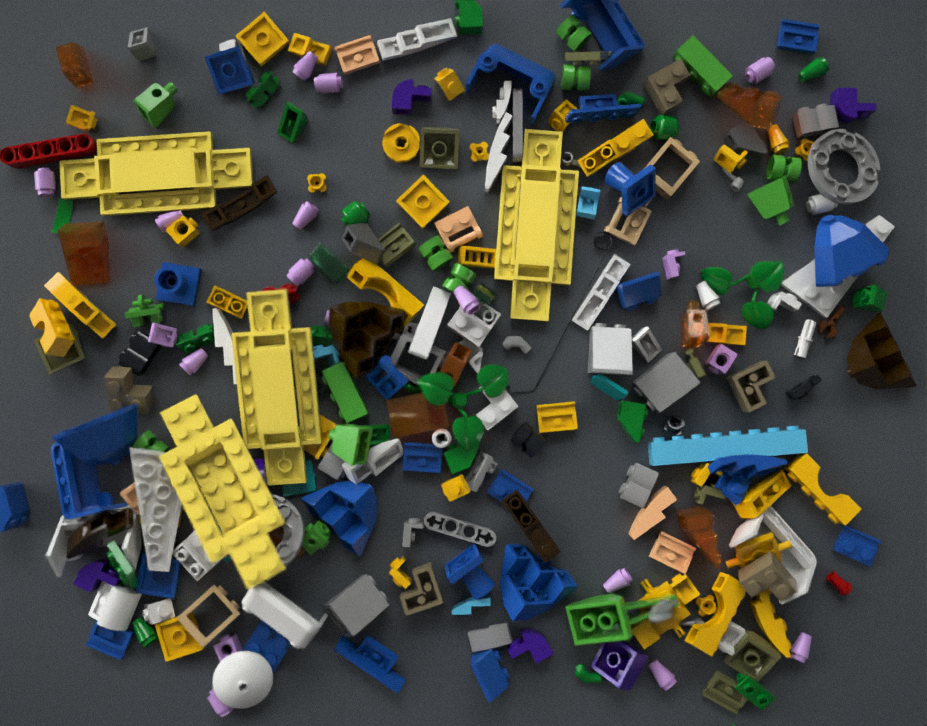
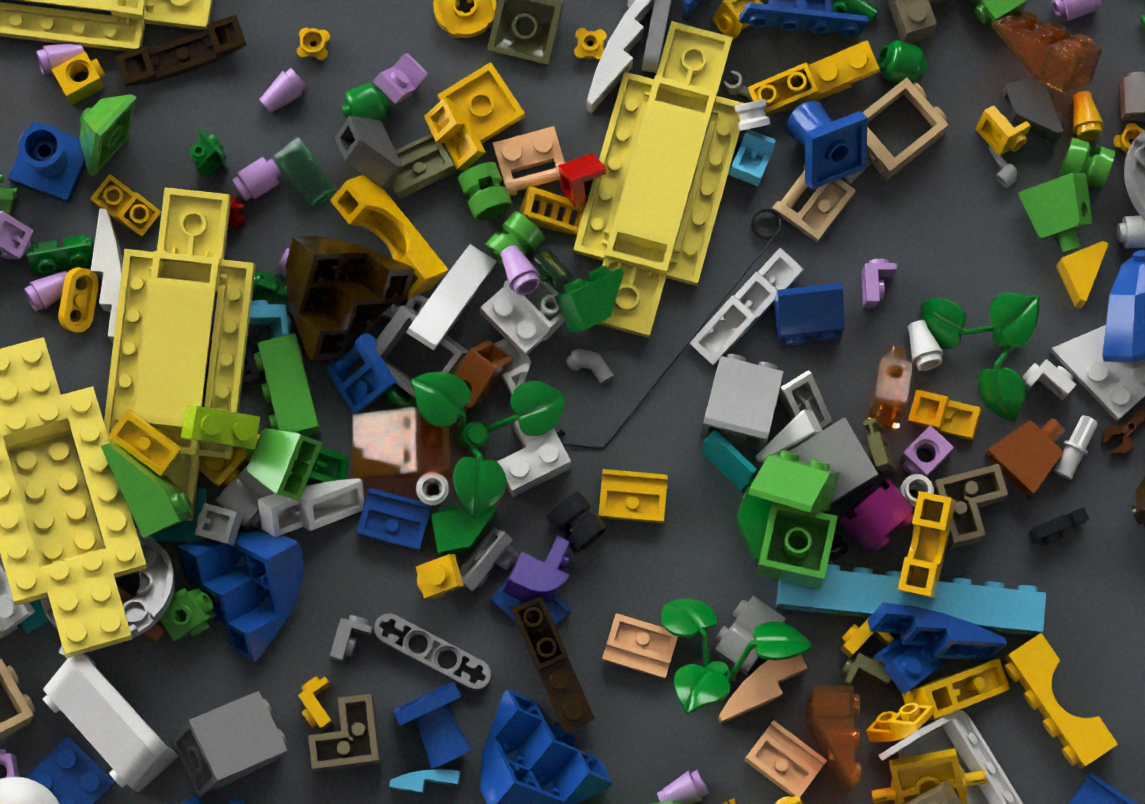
camera: 10 degrees right, 10 degrees down
(205, 260) = (105, 129): none -> bright green slope
(213, 363) = (78, 299): none -> yellow plate
(268, 264) = (208, 154): none -> green hinge
(268, 447) = (144, 442): none -> yellow plate
(275, 475) = (150, 497): none -> bright green slope
(310, 430) = (220, 427): none -> lime brick
(322, 482) = (218, 524): none -> light grey bracket
(373, 195) = (401, 79): none -> lavender bracket
(410, 220) = (453, 130): none -> yellow slope
(487, 234) = (579, 174): none -> red panel
(512, 308) = (590, 300): none -> green slope
(512, 479) = (535, 578): none -> dark purple brick
(577, 503) = (639, 646): none -> light nougat plate
(584, 177) = (752, 114): none -> white wheel
(622, 527) = (708, 685): none -> green plant
(646, 363) = (795, 433): none -> white slope
(653, 397) = (795, 482): none -> bright green slope
(660, 433) = (796, 546): none -> bright green brick
(701, 403) = (877, 515): none -> magenta brick
(724, 381) = (915, 483): none -> white brick
(735, 420) = (928, 545): none -> yellow arch
(736, 523) = (896, 726): none -> yellow slope
(779, 349) = (1028, 454): none -> dark orange torso
(791, 235) = (1080, 271): none -> yellow slope

